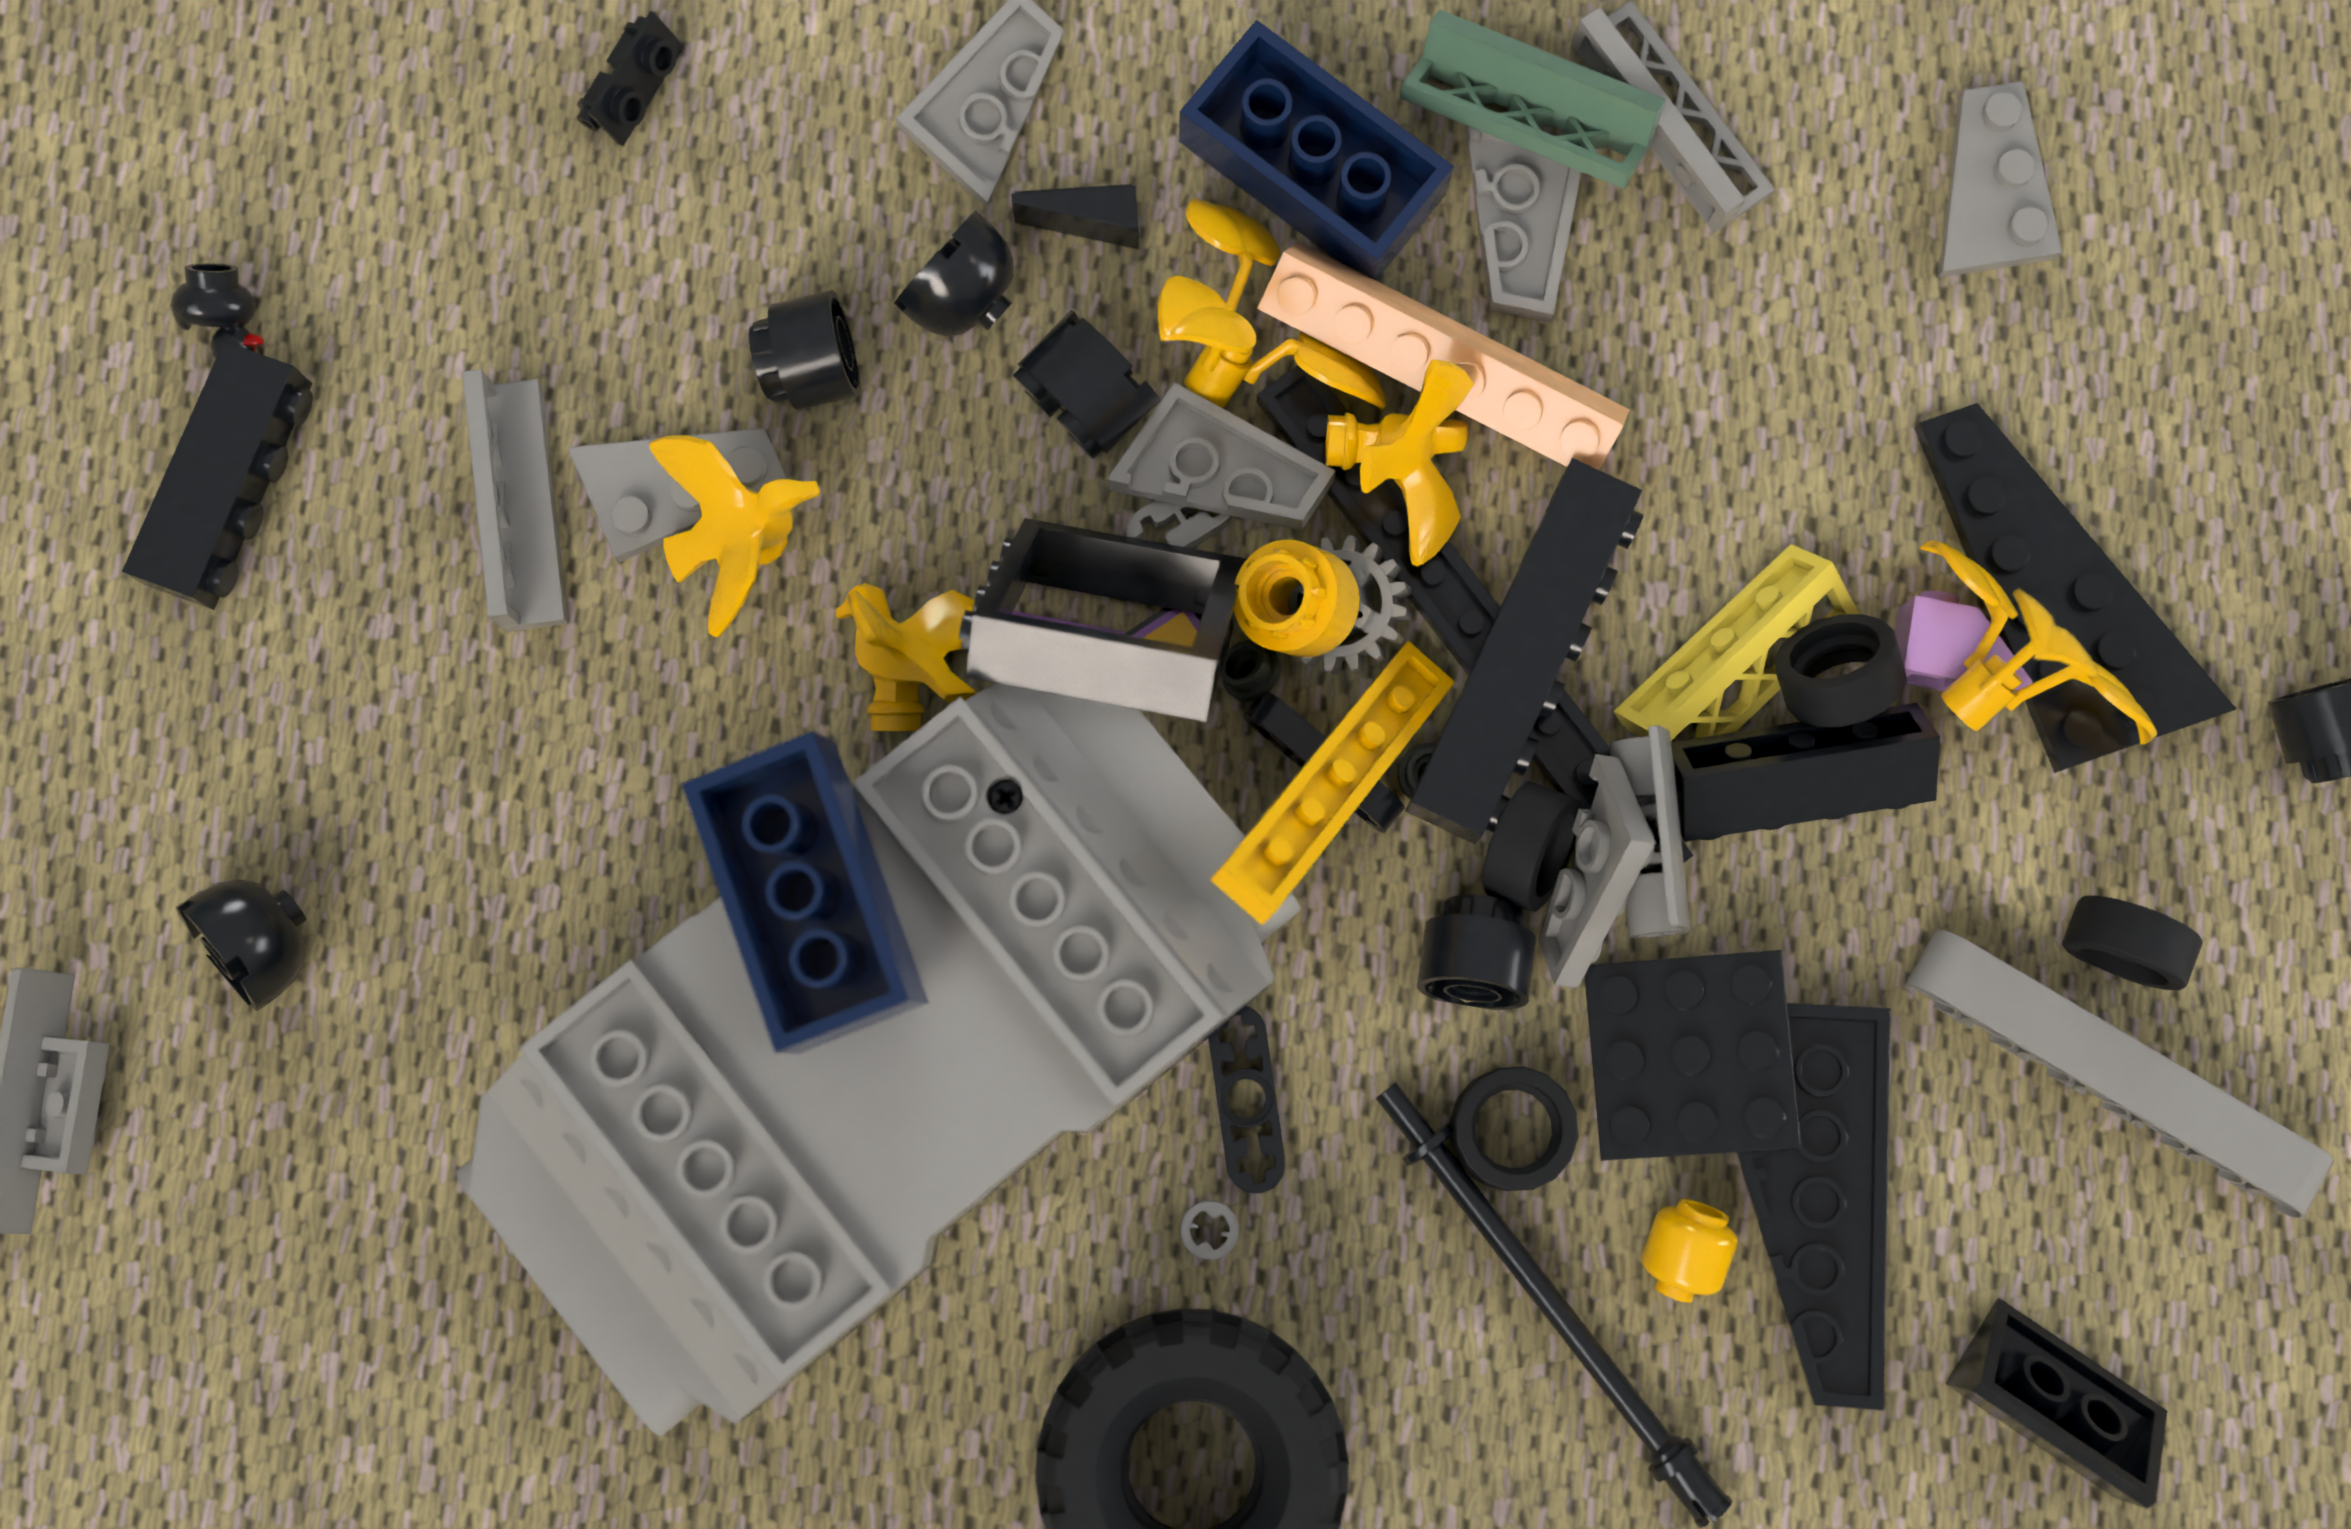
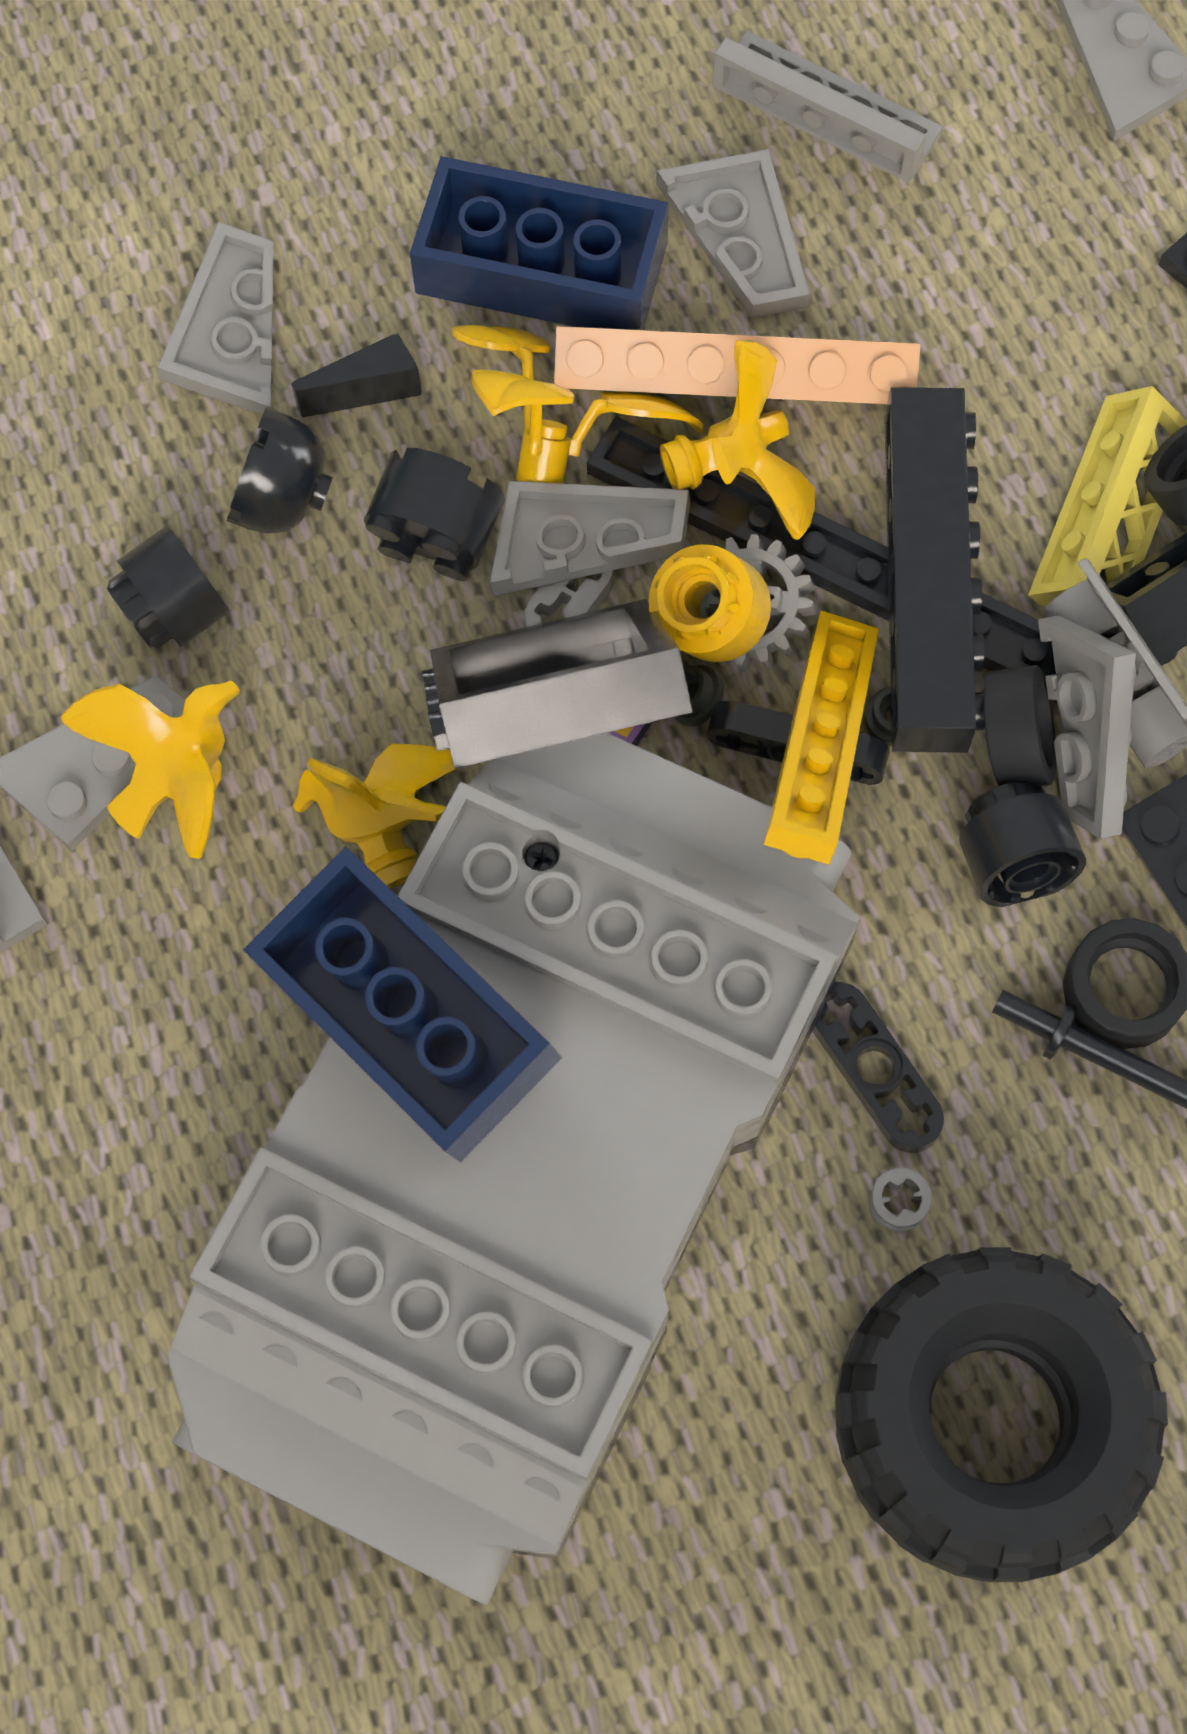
camera: 20 degrees left, 10 degrees down
(1538, 92) = (707, 124): sand green fence -> none

